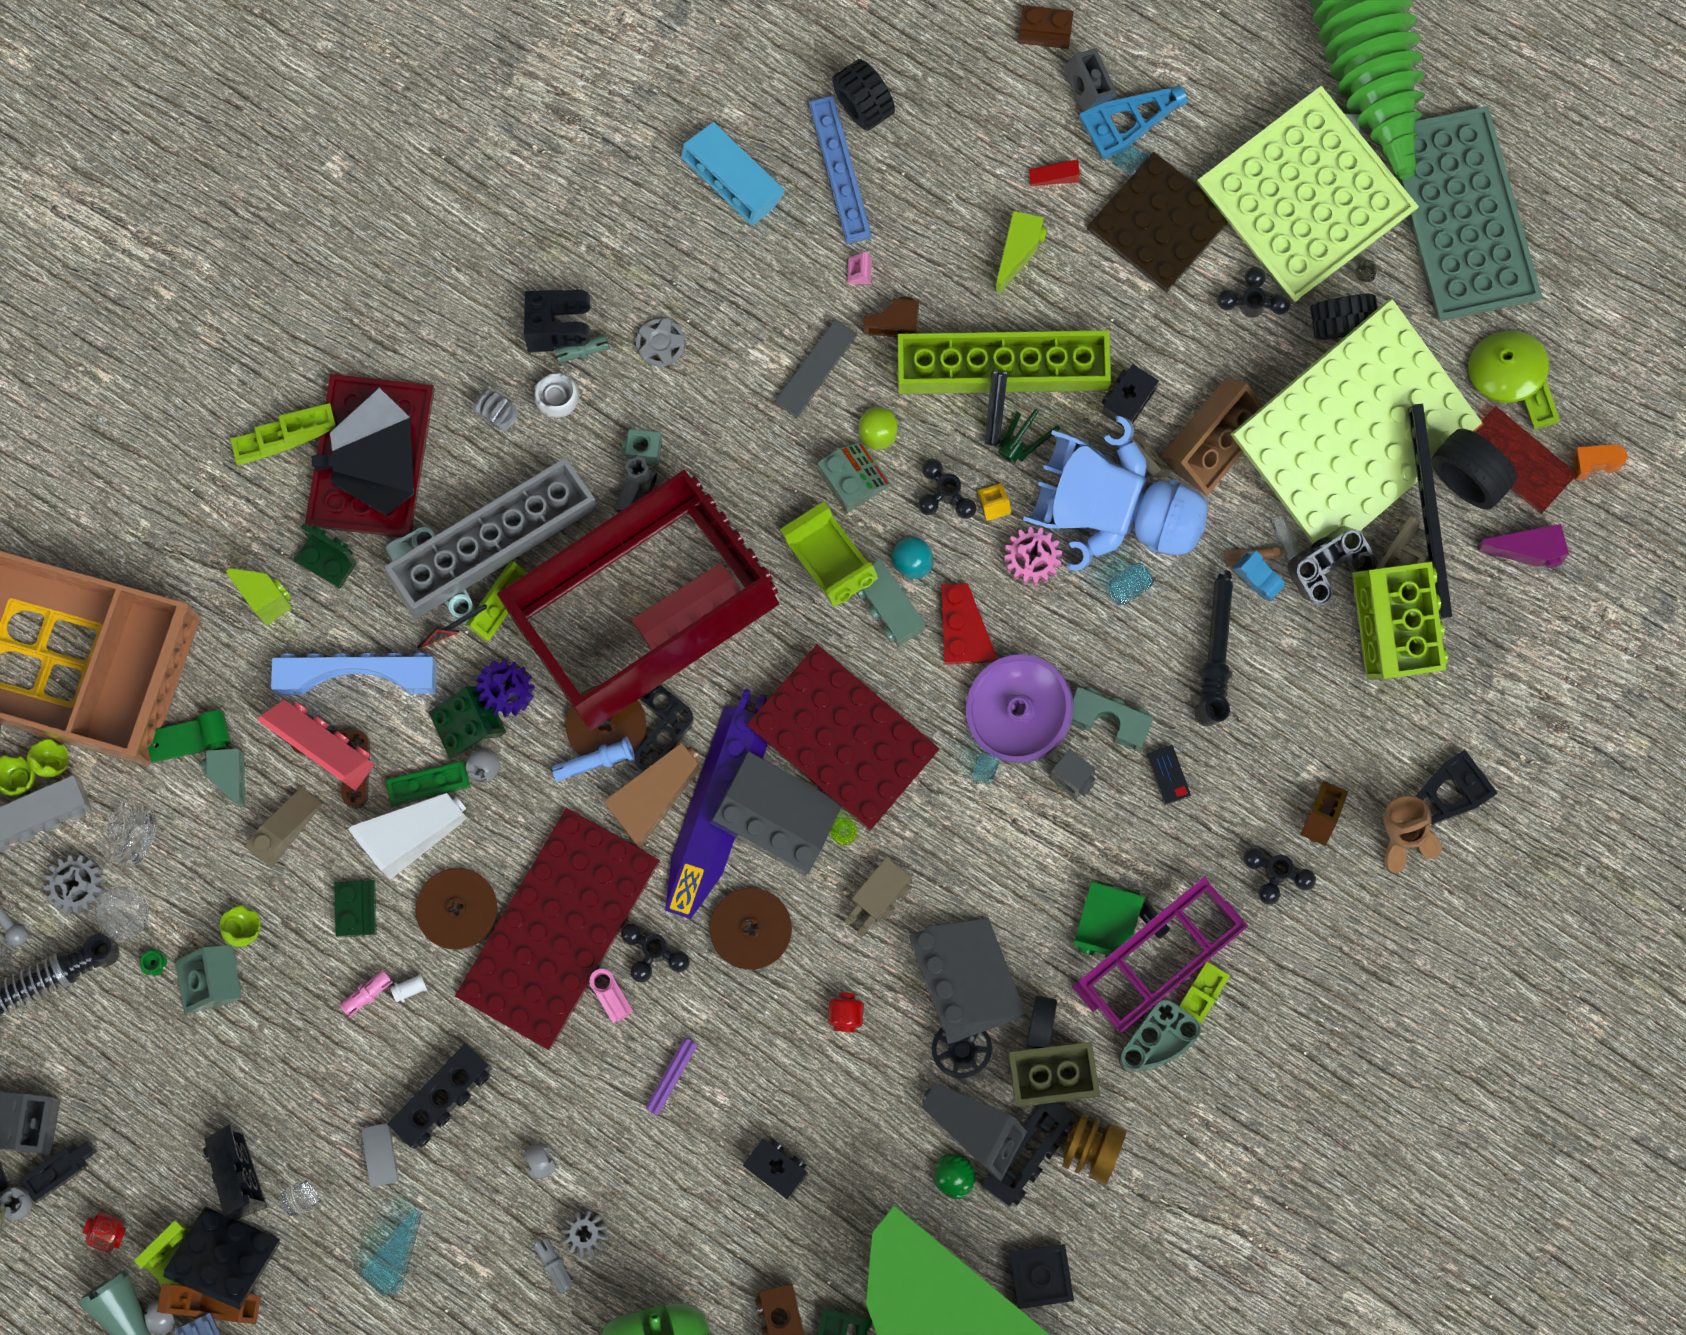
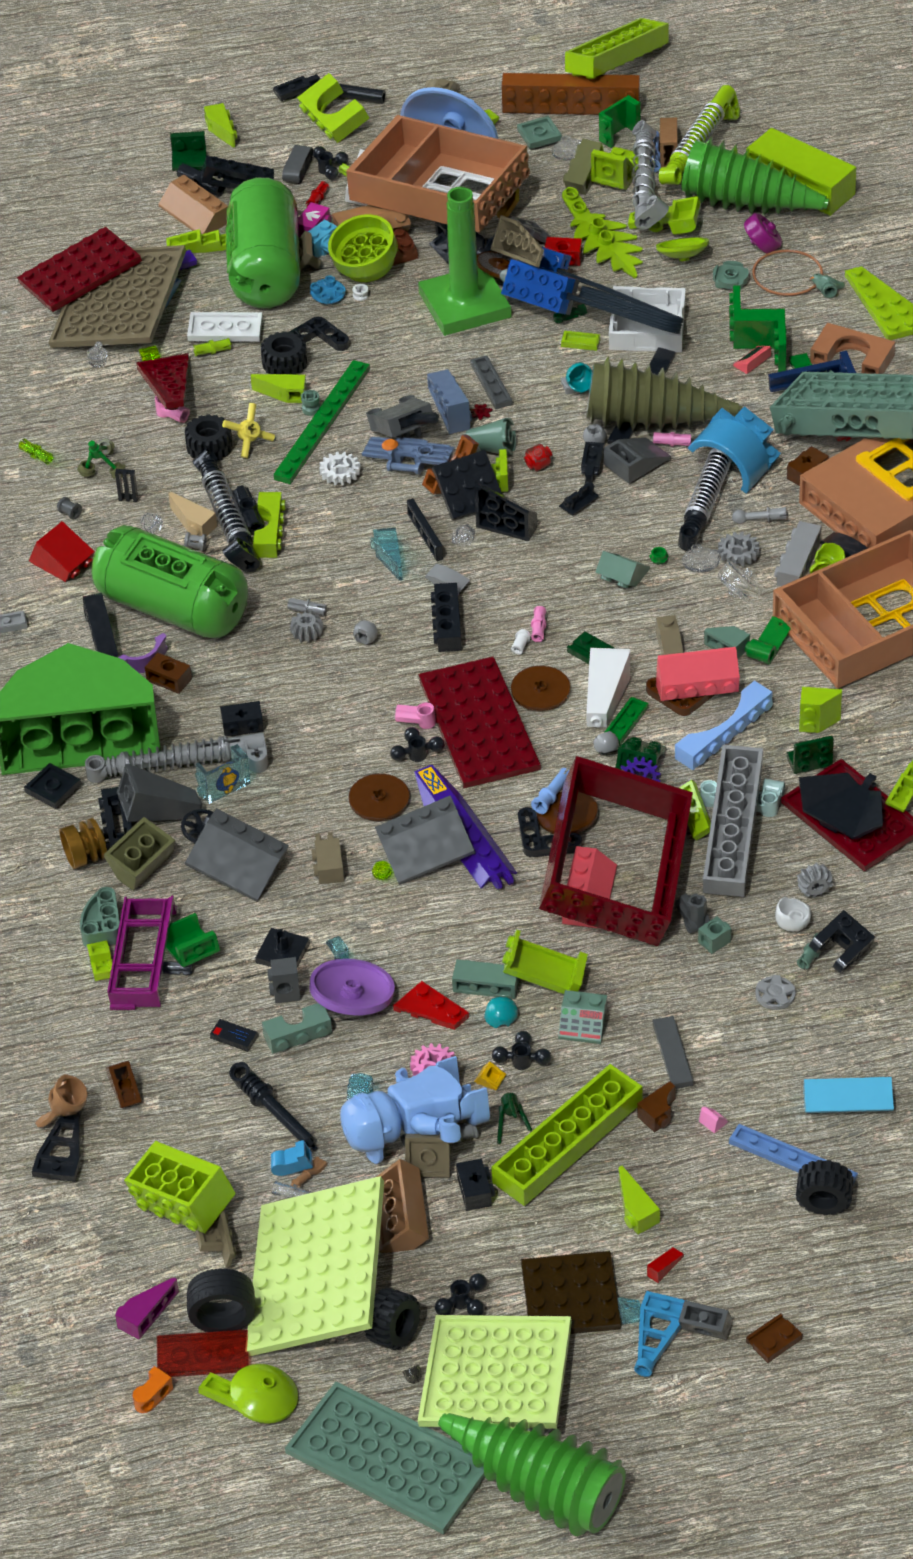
camera: 130 degrees right, 30 degrees down
(134, 1127) = (579, 499): none -> black hinge
(239, 926) = (635, 595): lime hair -> none
(326, 1250) = (424, 529): none -> black tile
(442, 633) = (706, 772): black piece -> none
(651, 794) = (502, 798): medium nougat slope -> none
(671, 1076) = (343, 713): medium lavender axle -> none
(843, 737) = (433, 902): dark red plate -> none
(845, 1012) = (283, 799): red head -> none
(850, 1085) = (225, 778): none -> clear light blue panel
(877, 428) = (600, 1053): lime hair -> none
(880, 1175) = (187, 754): none -> light grey piece
(995, 407) = (542, 1104): black axle -> none
(1027, 831) = (282, 945): none -> black tile
(1041, 1022) = (173, 870): black tyre -> none
(1269, 892) = (119, 1037): black piece -> none
(1325, 556) = (261, 1185): black beam -> none
(1429, 505) = (219, 1259): black tile -> none

